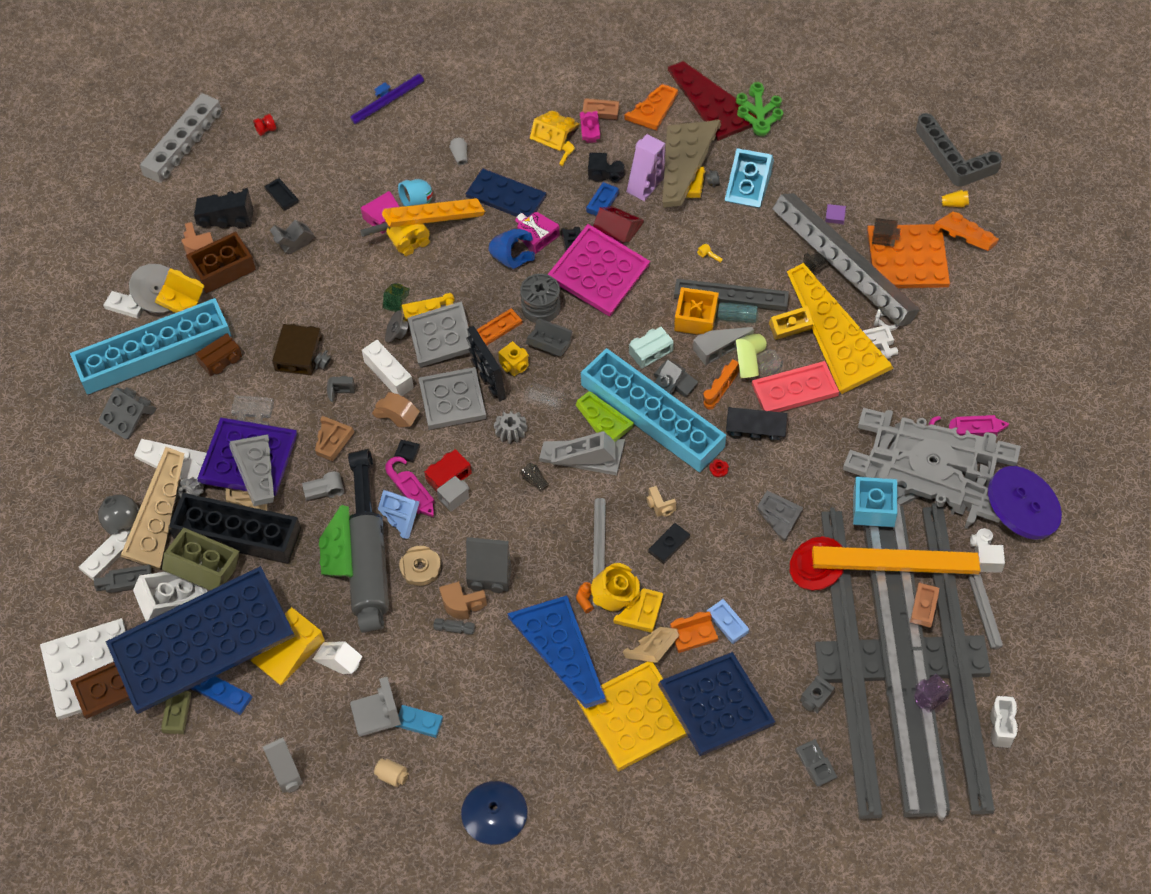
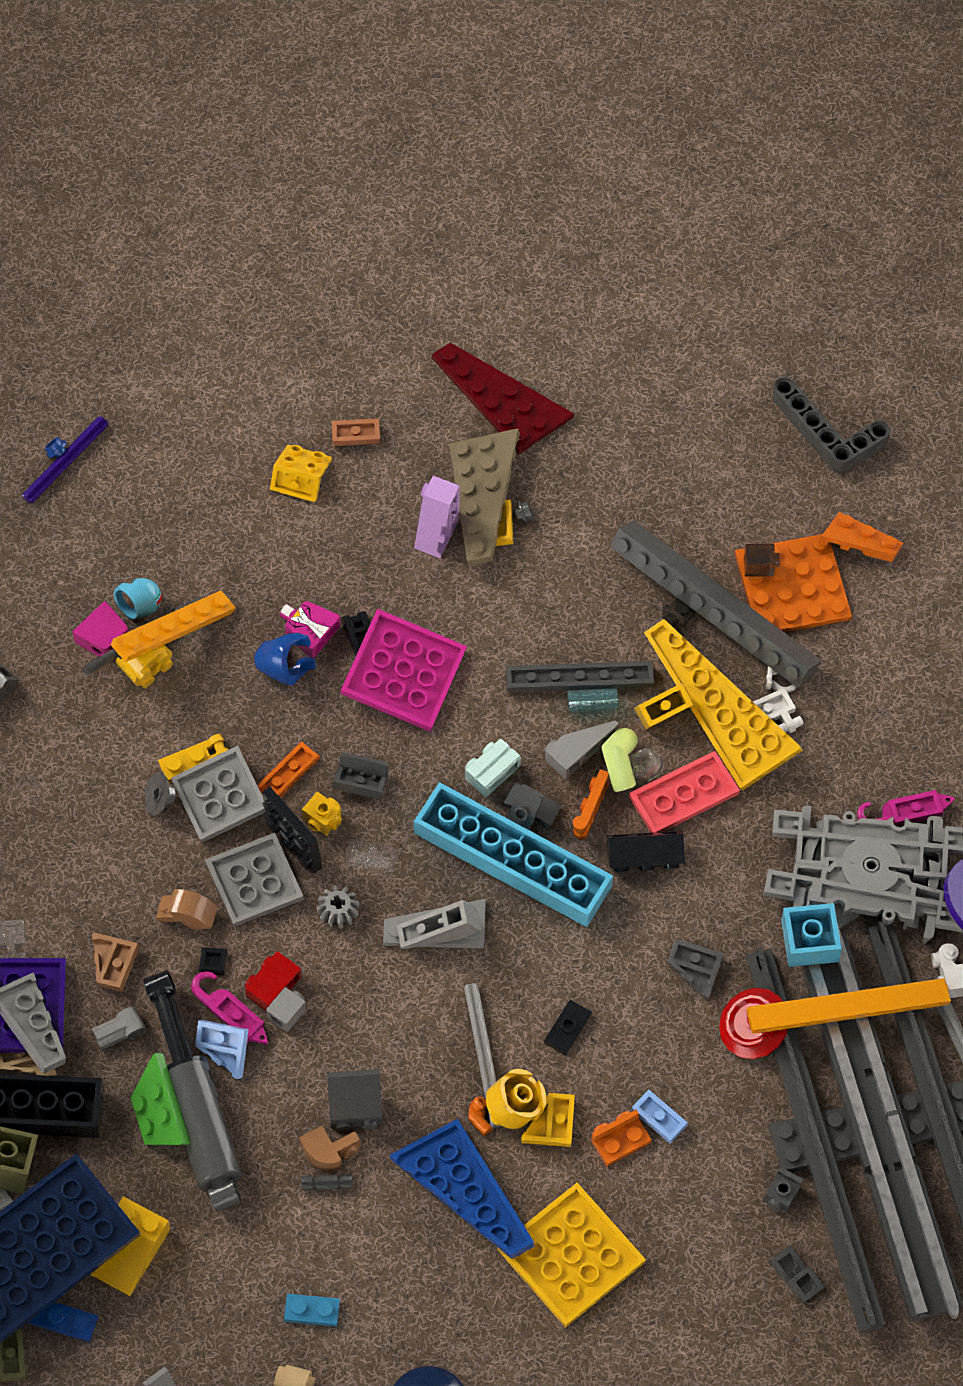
camera: 15 degrees left, 5 degrees up
(296, 349) = (37, 845): dark brown panel -> none
(322, 360) = (74, 855): dark grey plate -> none
(338, 657) = (193, 1248): white slope -> none
(339, 385) = (105, 886): dark grey plate -> none
(375, 711) = (258, 1307): light grey bracket -> none
(387, 368) = (162, 854): white brick -> none
(394, 296) = (146, 750): clear green bracket -> none
(420, 576) = (272, 1098): tan plate -> none
(459, 150) = (181, 523): light grey cone -> none
(505, 194) = (257, 578): dark blue plate -> none
(533, 476) = (382, 968): clear smoke cone -> none
(540, 297) = (338, 735): dark grey wheel -> none
(568, 148) = (325, 498): yellow hand -> none
(590, 126) = (347, 461): dark pink hips -> none
(600, 170) = (374, 523): black brick -> none
(603, 198) = (386, 567): blue plate -> none
(603, 416) = (452, 874): lime wing -> none
(617, 223) = (413, 599): dark red slope -> none
(653, 646) = (576, 1164): tan wing -> none
(654, 108) = (426, 419): orange wing -> none
(656, 502) = (540, 976): tan bracket -> none
(696, 311) = (540, 709): light orange brick -> none
(705, 250) = (534, 617): yellow hand -> none
(716, 703) = (666, 1223): dark blue plate -> none
(719, 472) = (609, 923): red plate -> none
(749, 178) = (571, 507): medium azure slope -> none
(760, 126) = (564, 403): bright green plant -> none
(835, 214) = (690, 539): medium lavender tile -> none
(924, 605) = (892, 1057): nougat plate -> none
(931, 693) = (918, 1167): clear purple brick -> none
(956, 199) = (841, 494): yellow cone -> none

